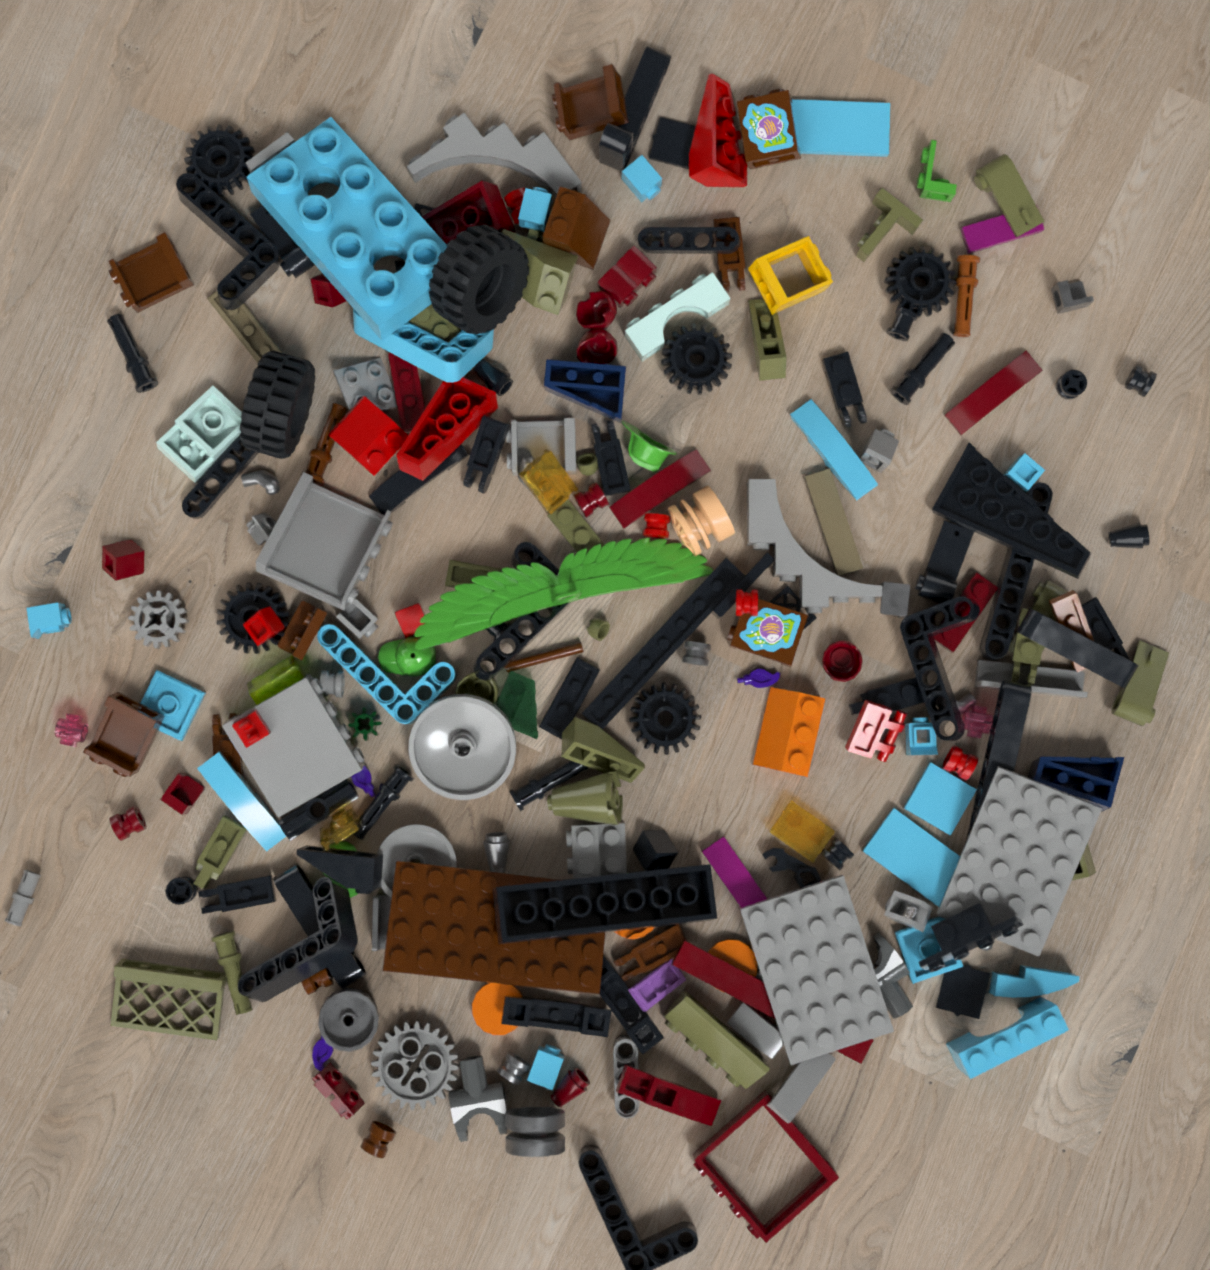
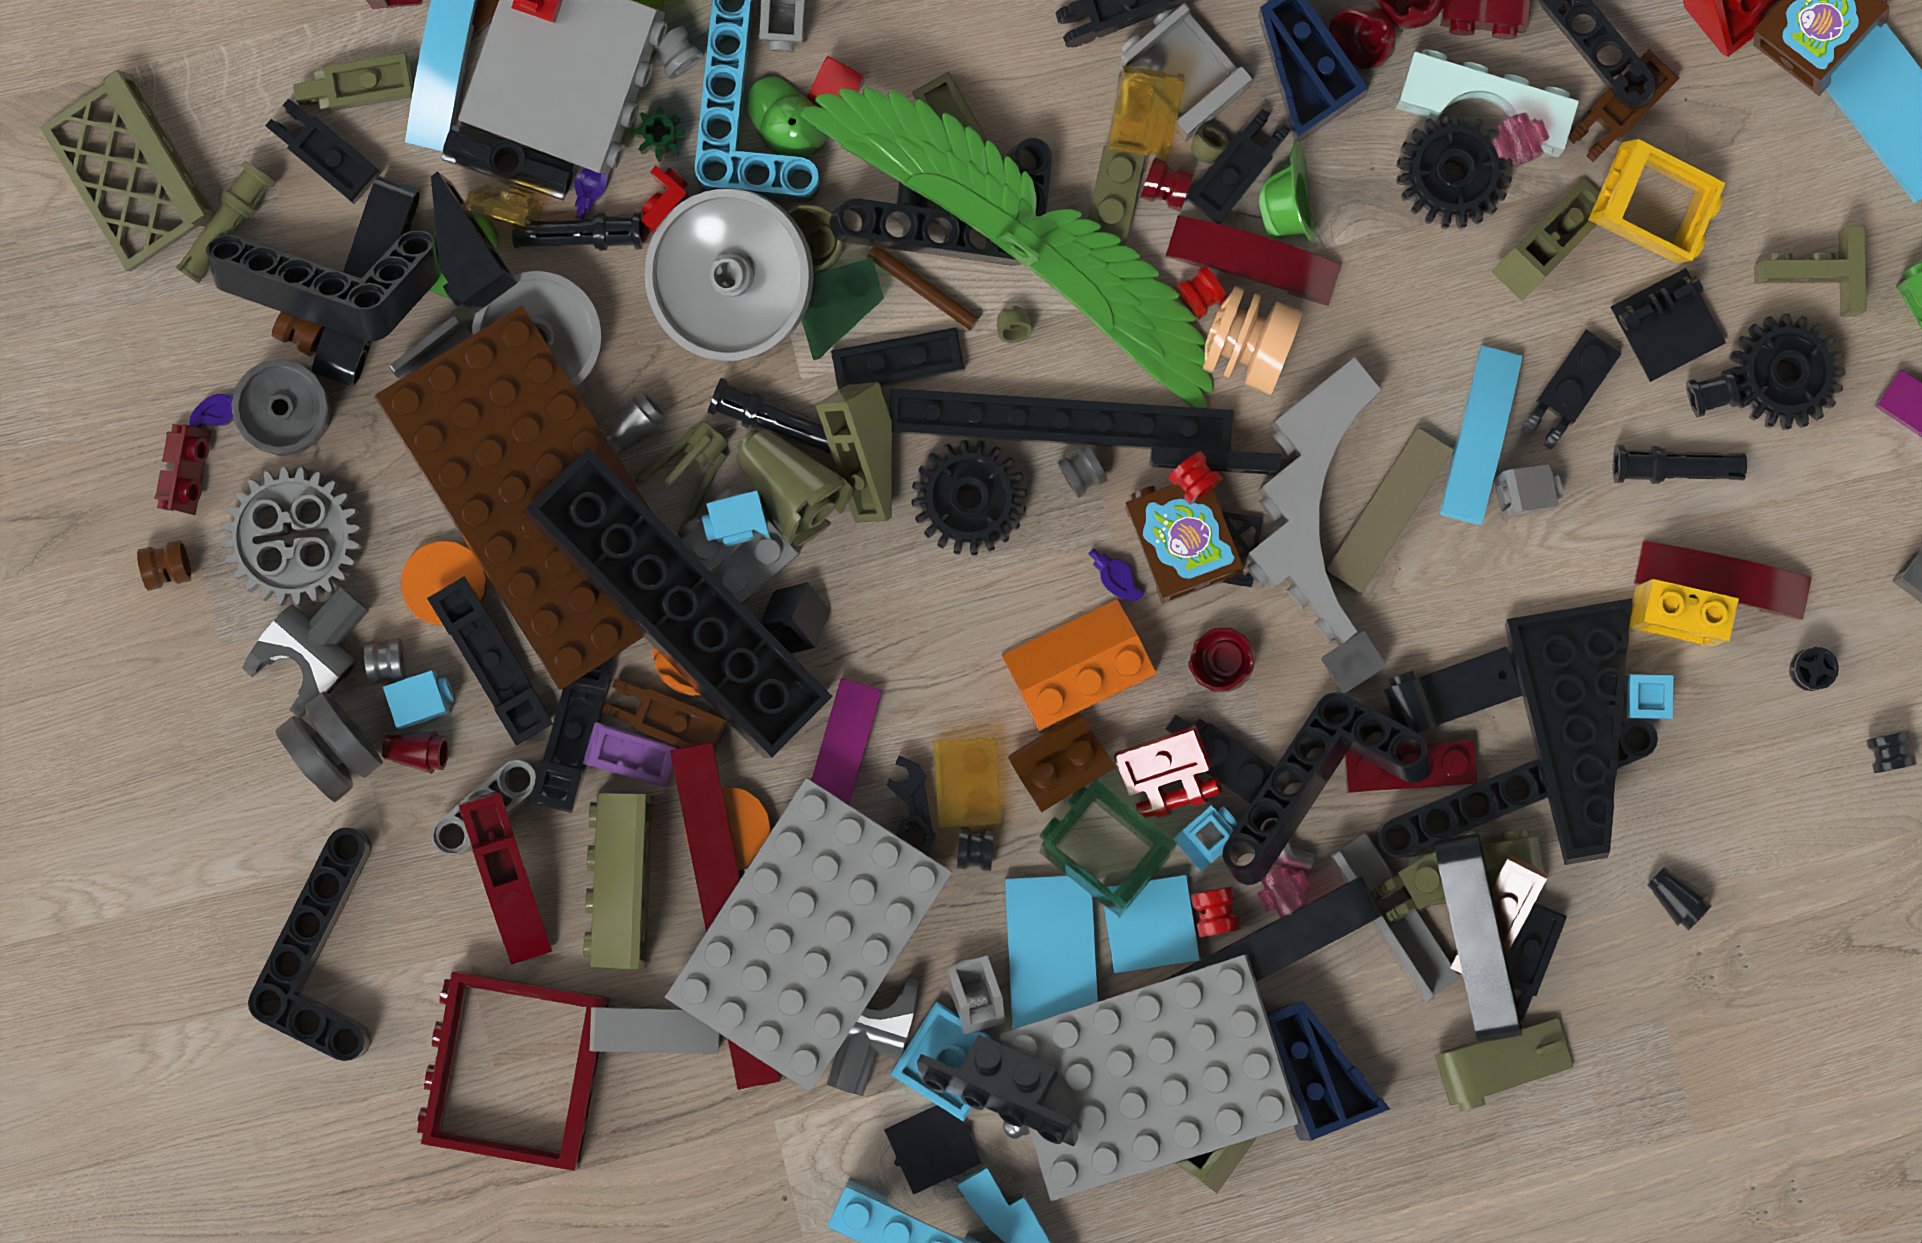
camera: 60 degrees right, 0 degrees up
(177, 890) = (266, 72): black wheel -> none
(401, 752) = (660, 205): none -> red bracket
(535, 827) = (701, 447): none -> olive plant
(587, 841) = (736, 519): none -> medium azure window
(709, 314) = (1520, 139): none -> clear pink gear
(757, 1030) = (674, 924): light grey slope -> none
(829, 778) = (1060, 762): none -> reddish brown bracket
(851, 318) = (1668, 324): none -> black hinge
(915, 782) = (1080, 803): none -> clear green window
(966, 283) = (1833, 432): dark orange pin -> none
(999, 423) = (1670, 613): none -> yellow window

